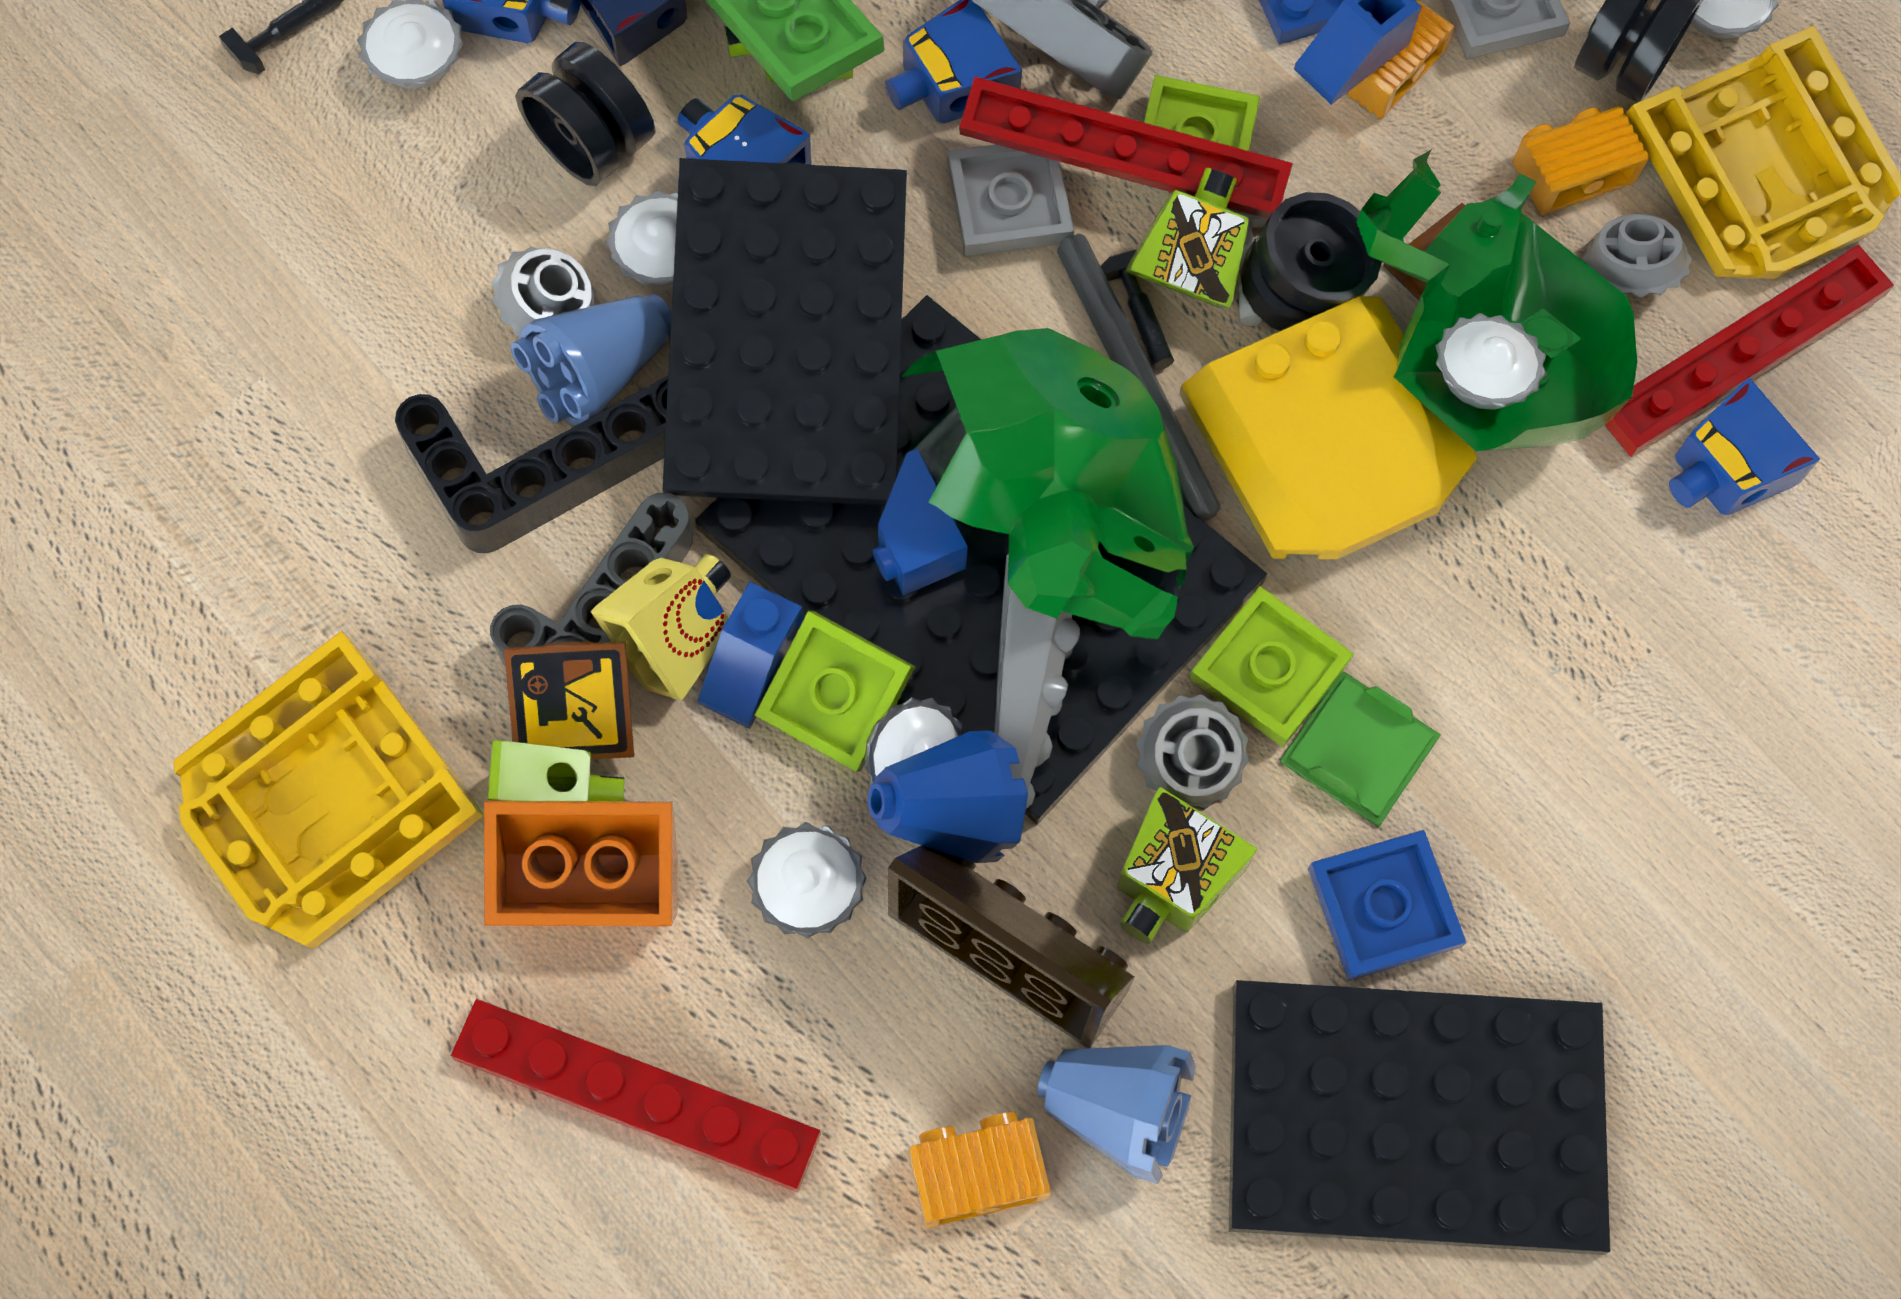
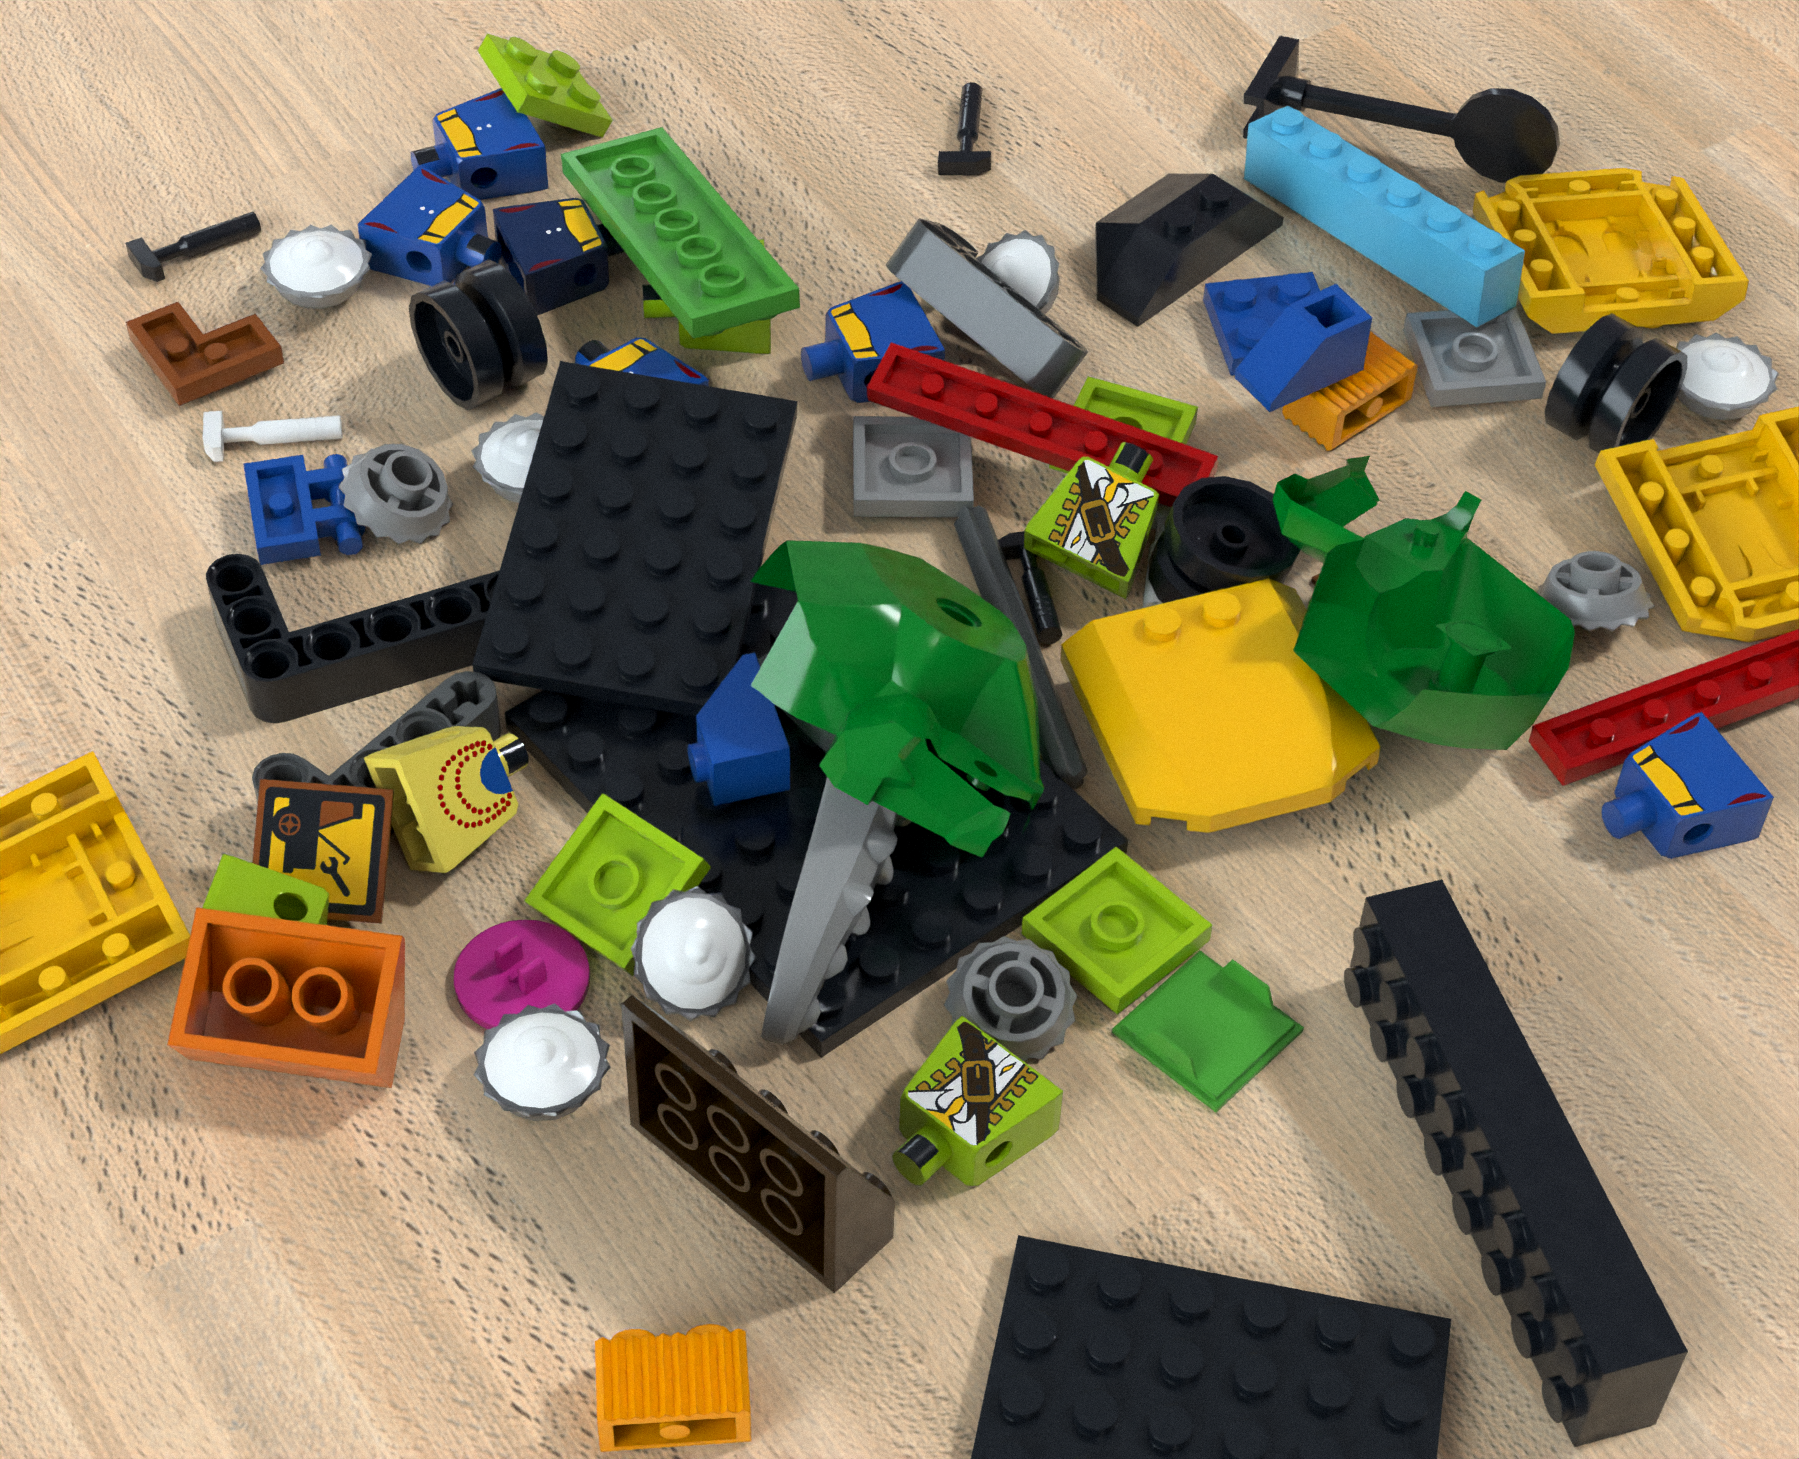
camera: 10 degrees right, 20 degrees down
(324, 169) = (201, 363): none -> dark orange plate
(404, 237) = (266, 432): none -> white piece
(444, 327) = (283, 510): none -> blue plate
(590, 353) = (426, 541): medium blue cone -> none
(636, 1095) = (300, 1263): red plate -> none
(749, 653) = (528, 836): blue slope -> none
(764, 783) = (520, 967): none -> dark pink piece
(954, 798) = (720, 985): blue cone -> none
(1122, 1102) = (860, 1336): medium blue cone -> none
(1386, 905) = (1208, 1183): blue plate -> none
(1490, 361) = (1402, 650): white piece -> none
(1580, 158) = (1541, 503): light orange brick -> none
(1636, 855) = (1512, 1167): none -> black brick

